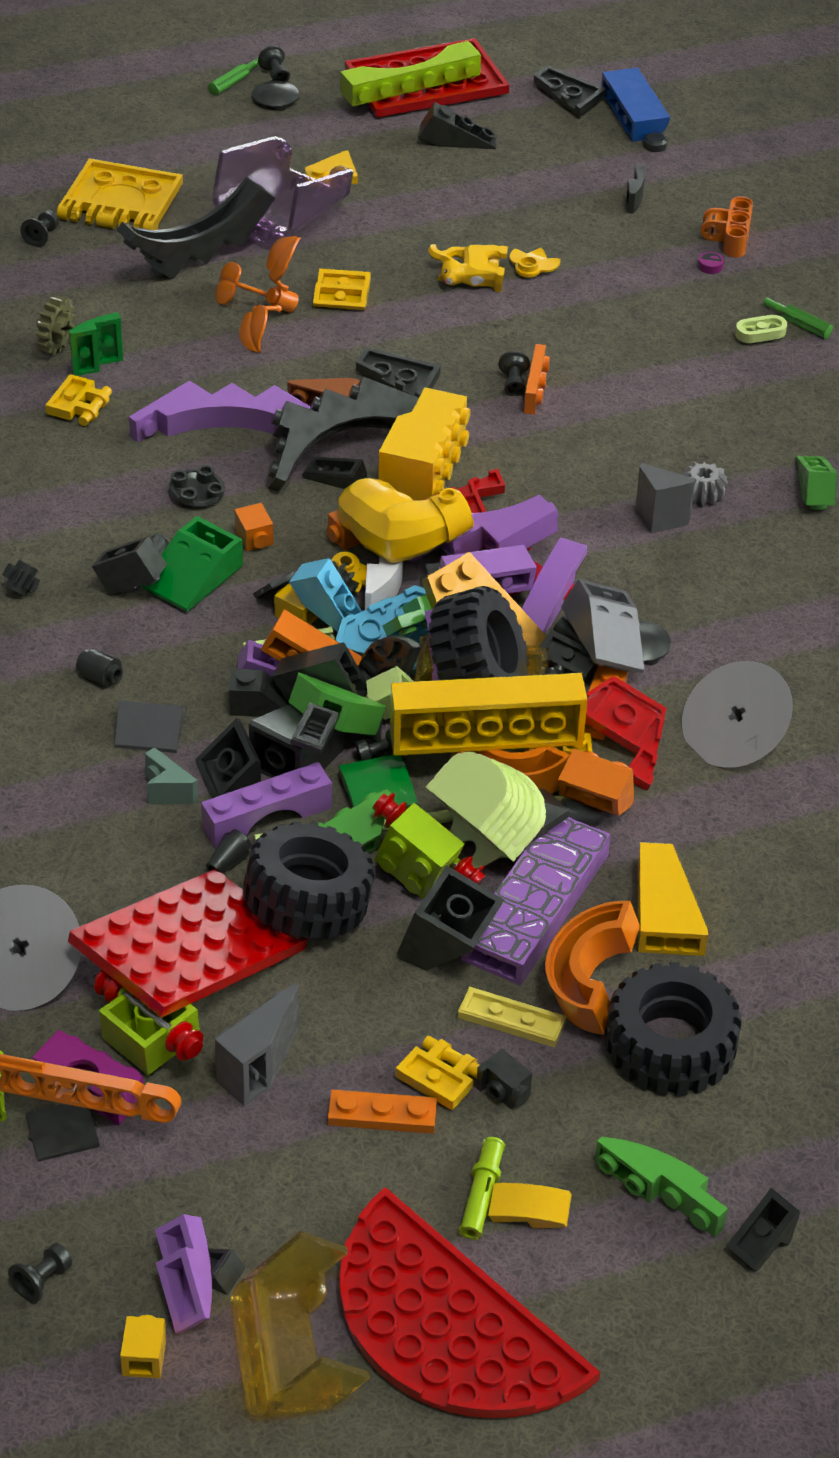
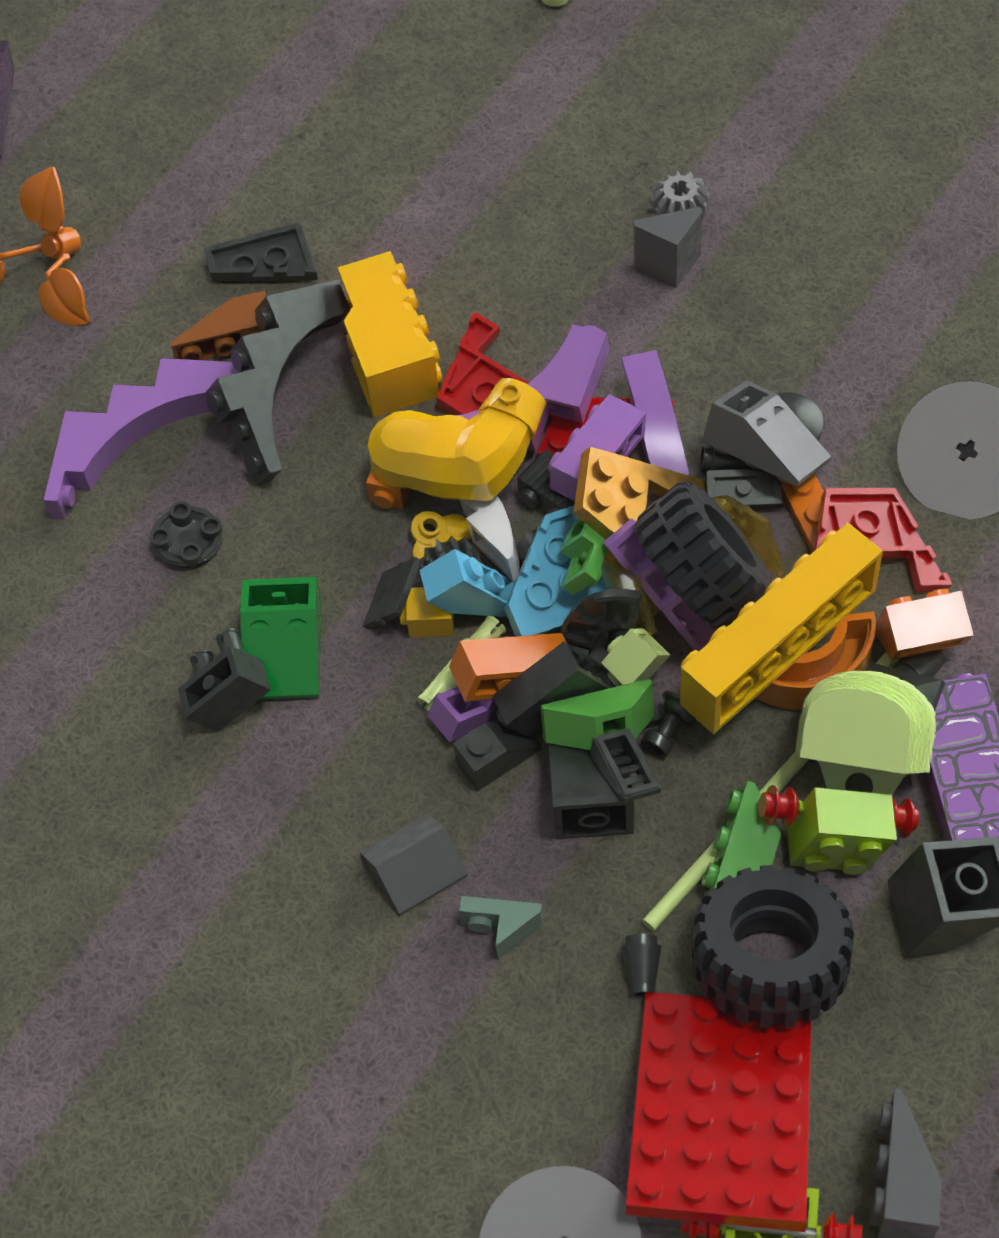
camera: 30 degrees left, 15 degrees up
(21, 577) = (112, 780): pearl dark grey gear -> none
(99, 667) = (299, 832): pearl dark grey brick -> none
(229, 761) = (547, 856): pearl dark grey slope -> none
(254, 526) = (296, 546): orange brick -> none
(300, 790) = (624, 883): medium lavender arch -> none
(342, 289) = (106, 190): yellow slope -> none
(343, 472) = (325, 427): pearl dark grey slope -> none
(375, 776) = (705, 771): green slope -> none
(478, 265) = (223, 76): yellow animal -> none
(514, 364) = (373, 175): pearl dark grey piece -> none
(532, 263) = (269, 37): yellow plate -> none
(537, 379) = (408, 178): orange plate -> none
(816, 481) = (778, 125): bright green slope -> none

